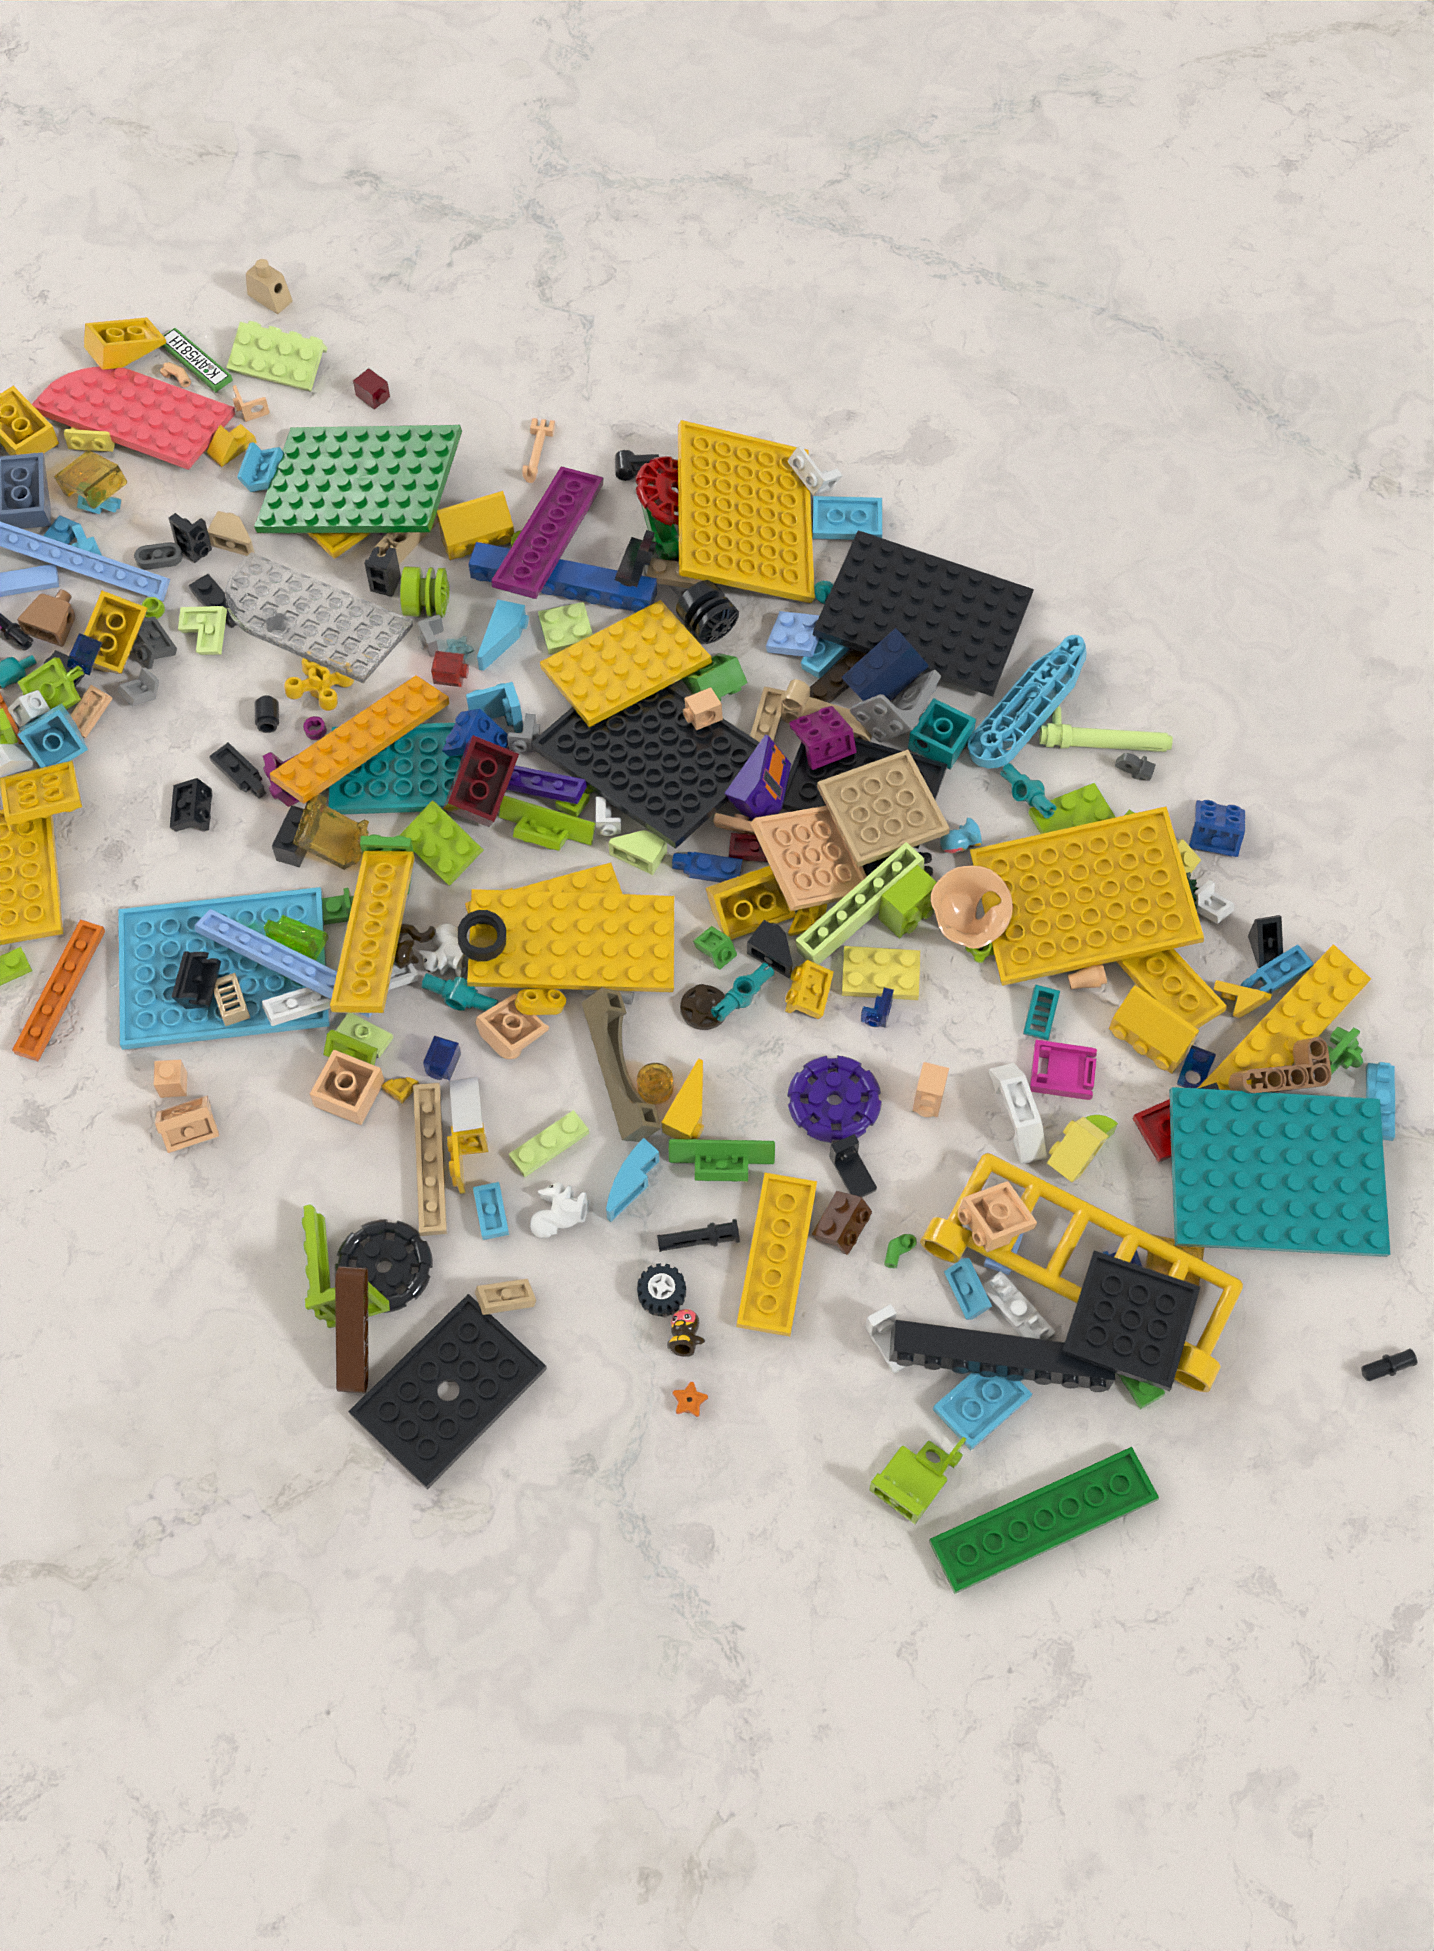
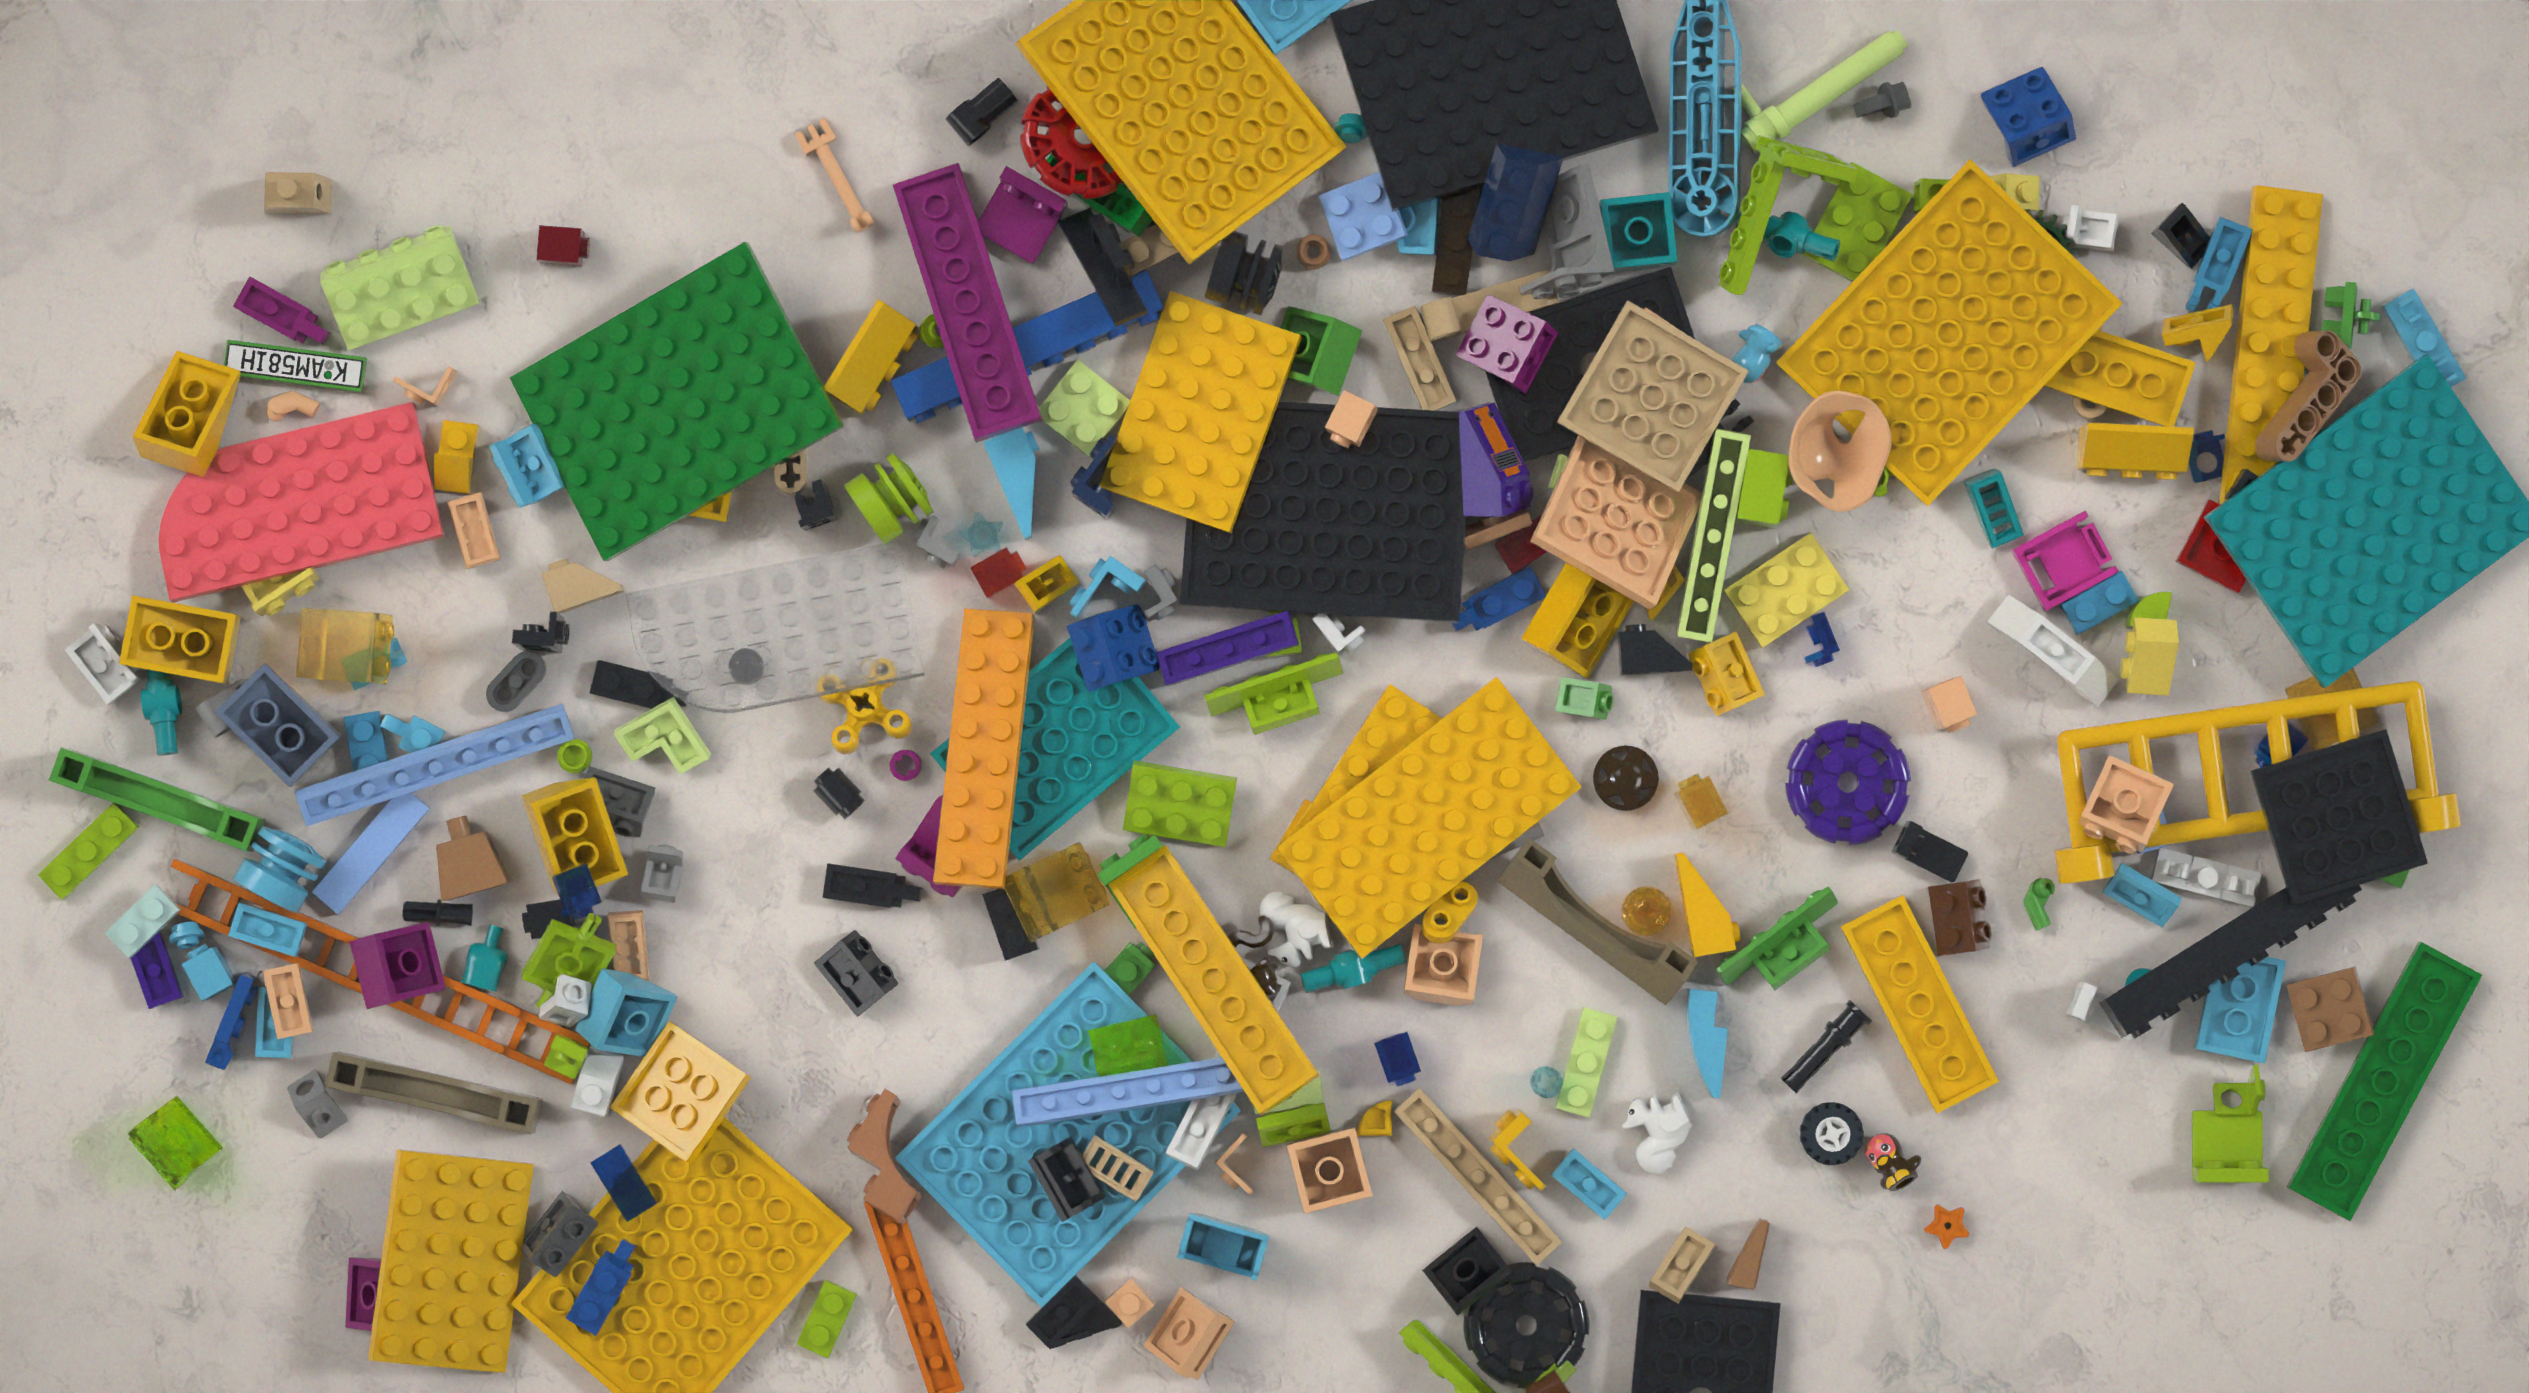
camera: 40 degrees left, 25 degrees up
(114, 892) = (871, 1143): none -> nougat arch
(131, 1063) = (1071, 1316): none -> black wing
(206, 479) = (474, 530): none -> light nougat plate
(210, 332) = (279, 312): none -> magenta hinge
(248, 1079) = (1223, 1245): none -> medium azure piece
(294, 1042) = (1229, 1175): none -> light nougat bracket
(375, 1207) = (1464, 1271): none -> black slope
(462, 684) = (1047, 583): none -> yellow slope
(465, 1104) = (1475, 1096): white sticker -> none
(481, 781) = (1176, 706): dark red brick -> none
(482, 917) = (1368, 902): black tyre -> none
(510, 1128) = (1536, 1077): none -> clear light blue bush
(539, 647) = (1097, 497): none -> dark blue bracket
(547, 1327) = (1747, 1265): none -> medium nougat slope
(616, 520) = (1021, 215): none -> magenta bracket
(639, 849) = (1408, 643): yellowish green slope -> none
(735, 1040) = (1699, 801): none -> clear yellow brick
(736, 999) = (1655, 750): teal pin -> none
(754, 630) = (1313, 240): none -> medium nougat plate
(1040, 1446) = (2330, 1009): none -> medium nougat plate
(1062, 747) = (1759, 201): none -> lime bracket
(1065, 1106) = (2099, 602): none -> dark azure plate
(1088, 977) = (2017, 430): light nougat cone -> none

